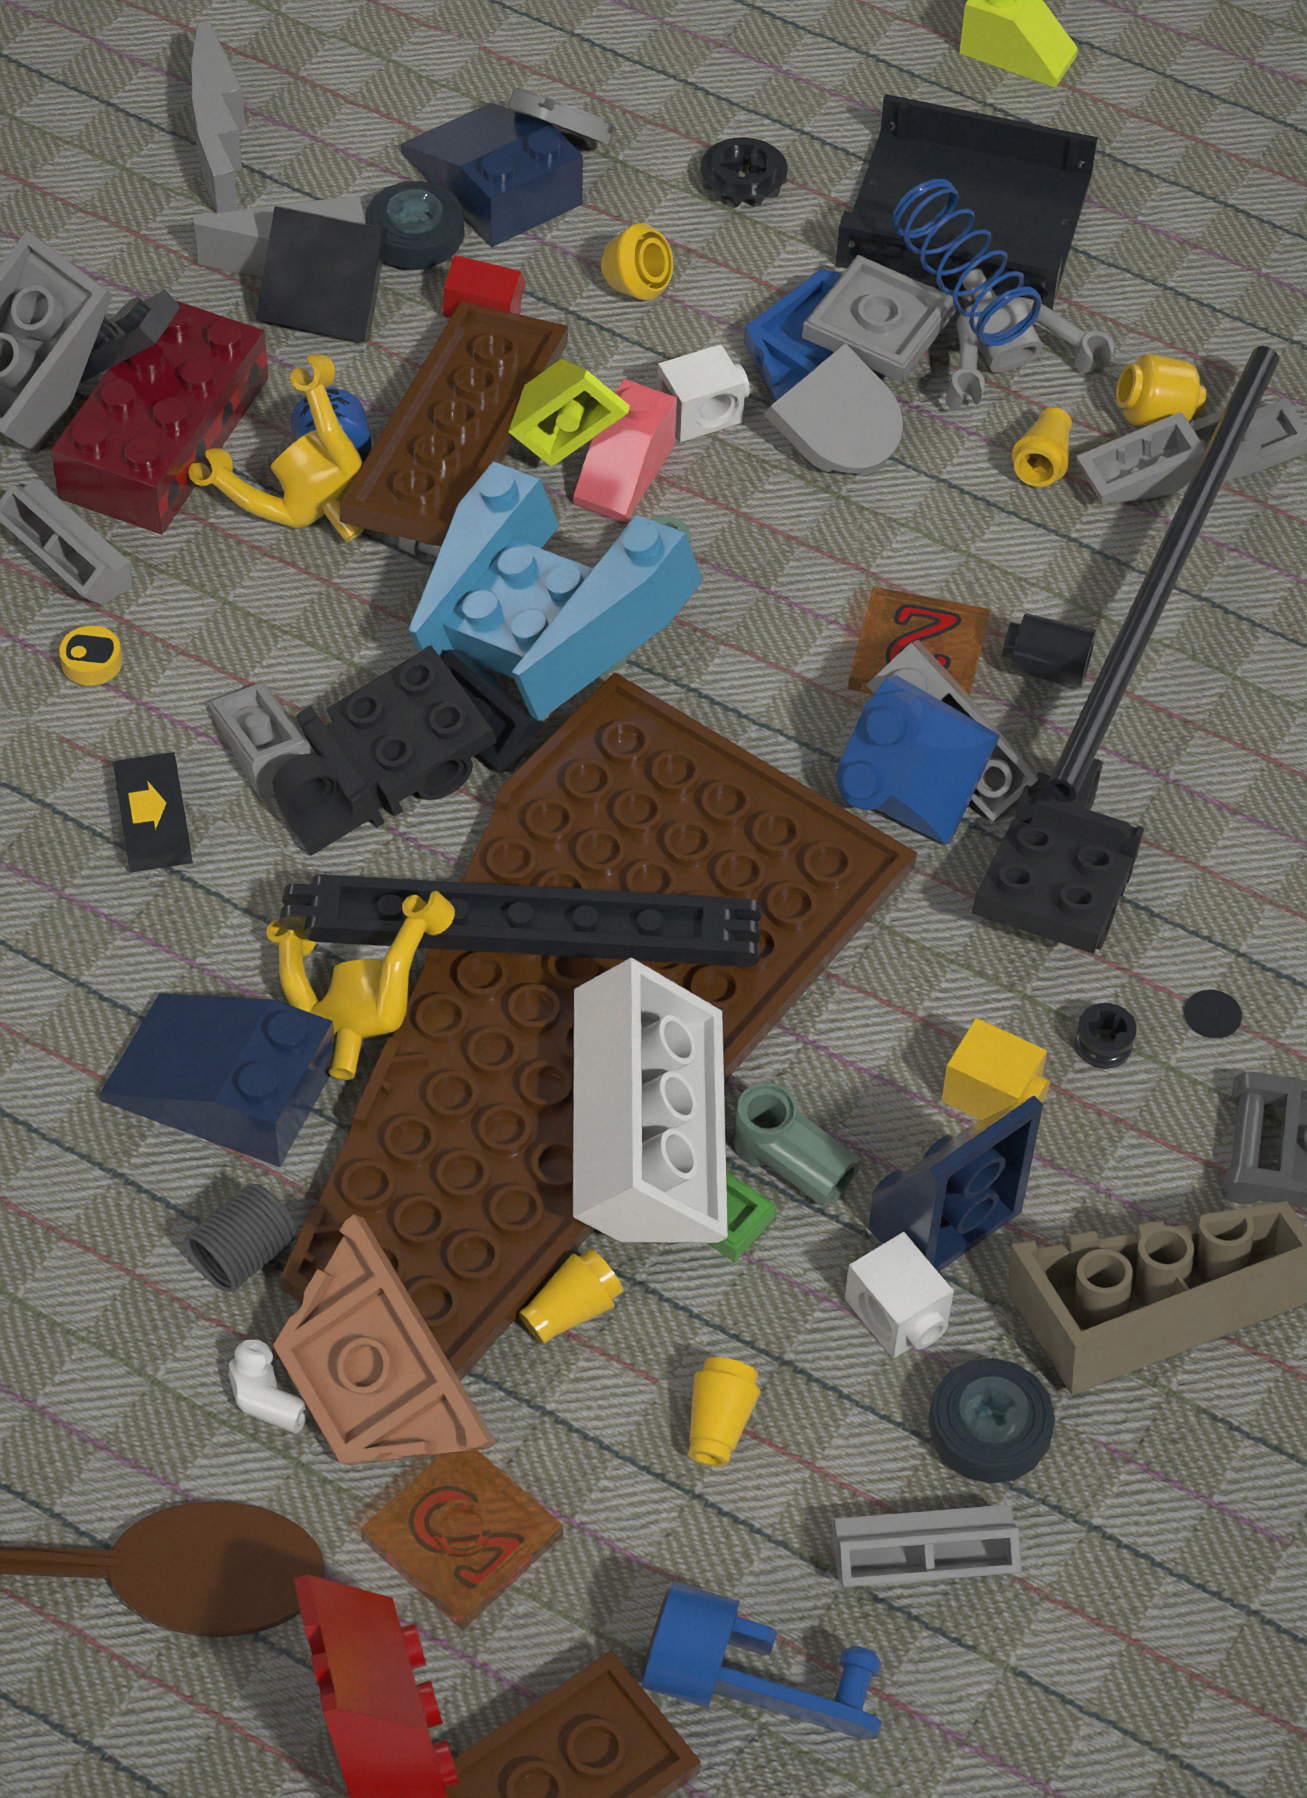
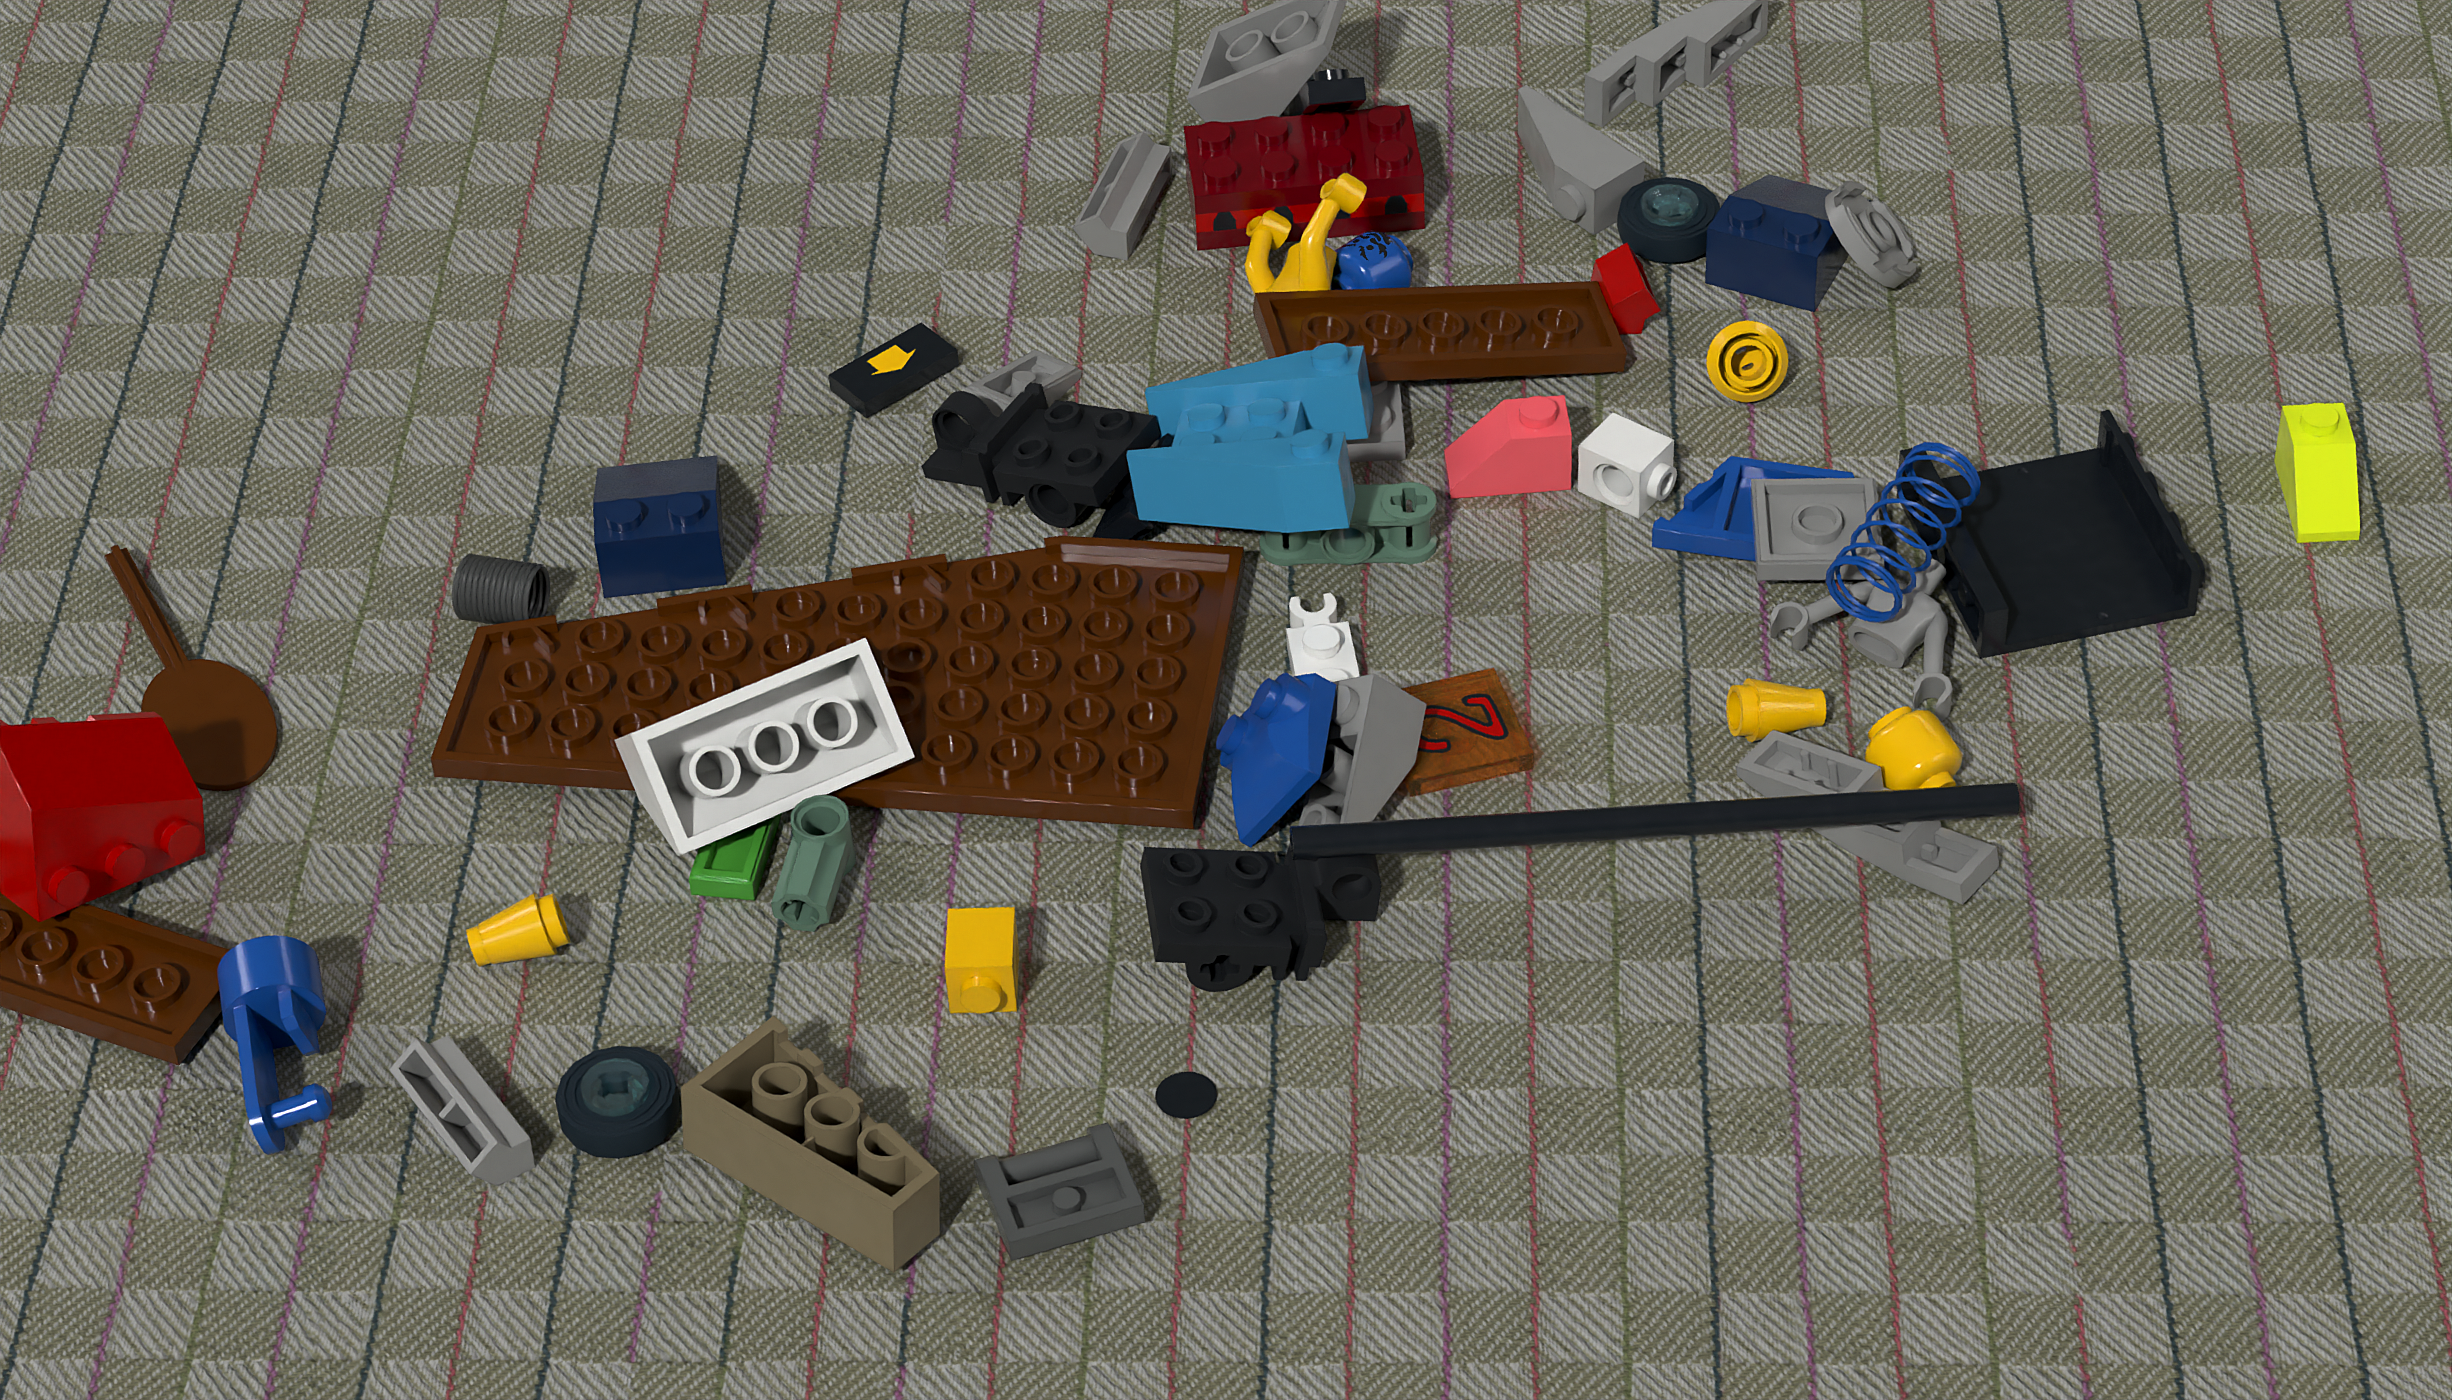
camera: 65 degrees right, 10 degrees down
(90, 655) = (1027, 266): yellow tile -> none
(257, 1389) = (379, 669): white arm -> none
(321, 273) = (1536, 184): black tile -> none
(364, 994) = (776, 544): yellow piece -> none
(374, 1364) = (421, 700): nougat wing -> none
(462, 1534) = (320, 840): clear orange tile -> none
(532, 920) = (914, 601): black hinge -> none
(564, 411) = (1489, 370): neon yellow slope -> none
(572, 1296) = (577, 800): yellow cone -> none
(725, 161) = (1954, 368): black gear -> none
(778, 693) = (1320, 643): none -> white plate
(840, 416) = (1676, 558): light grey tile -> none
(899, 1296) = (703, 990): white brick -> none
(961, 1186) = (812, 961): dark blue slope -> none
(1049, 649) = (1511, 788): black brick -> none
(1108, 1017) = (1104, 1012): black bush -> none

